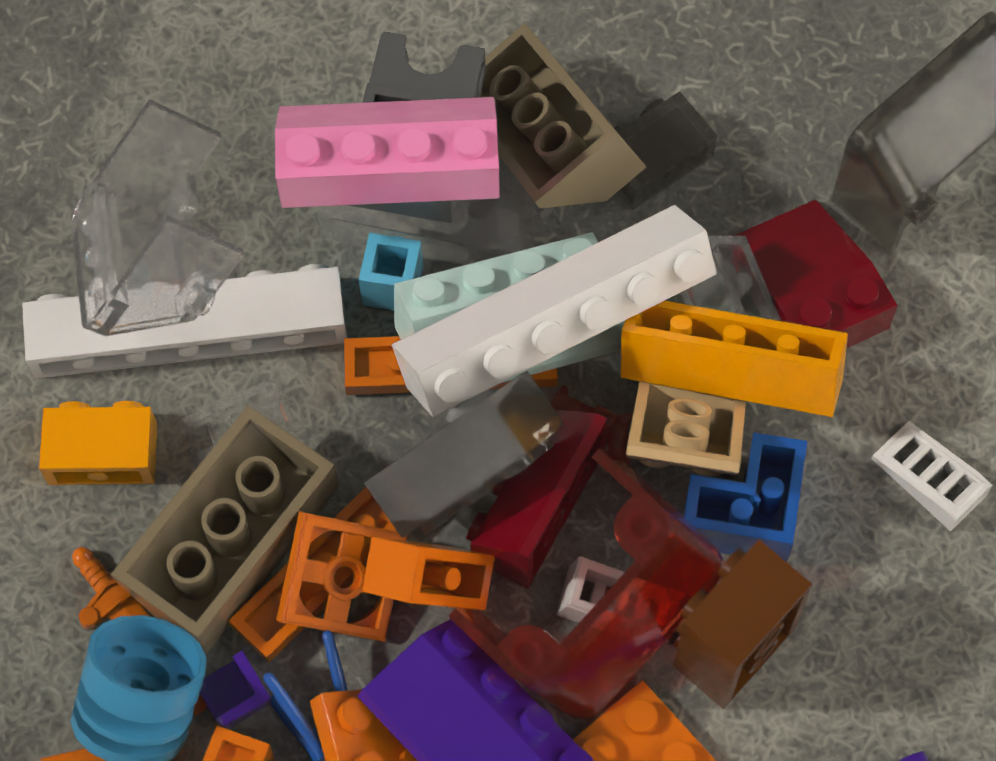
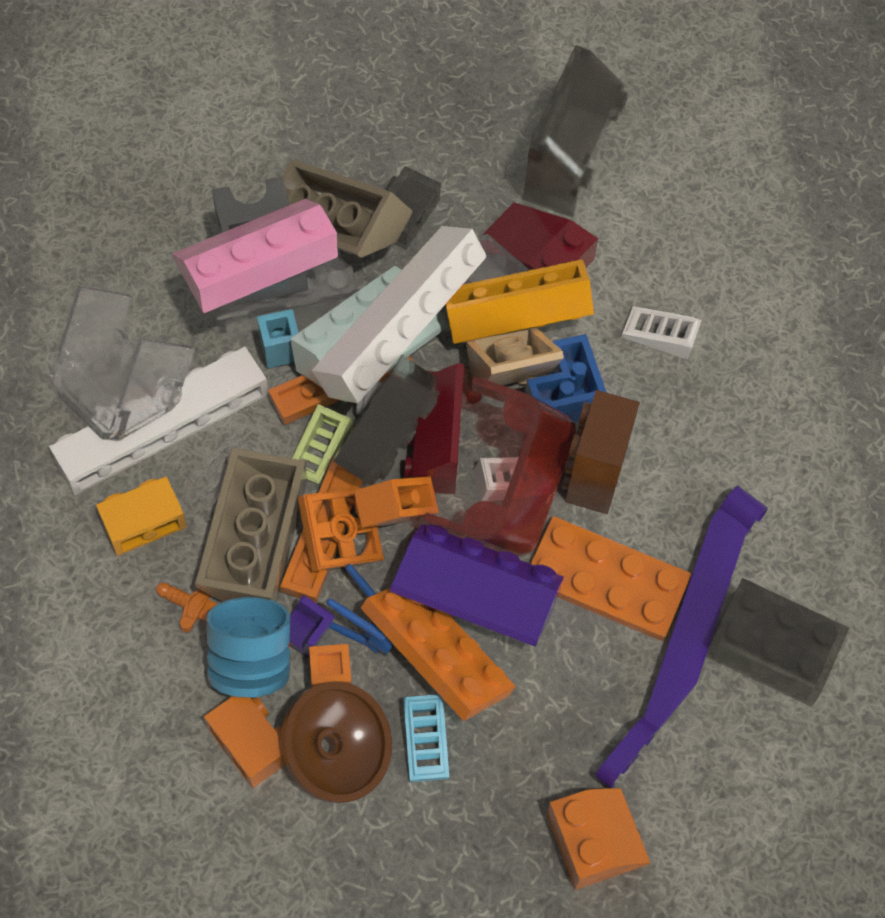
camera: 30 degrees left, 5 degrees down
(382, 415) = (332, 418): none -> yellowish green slope

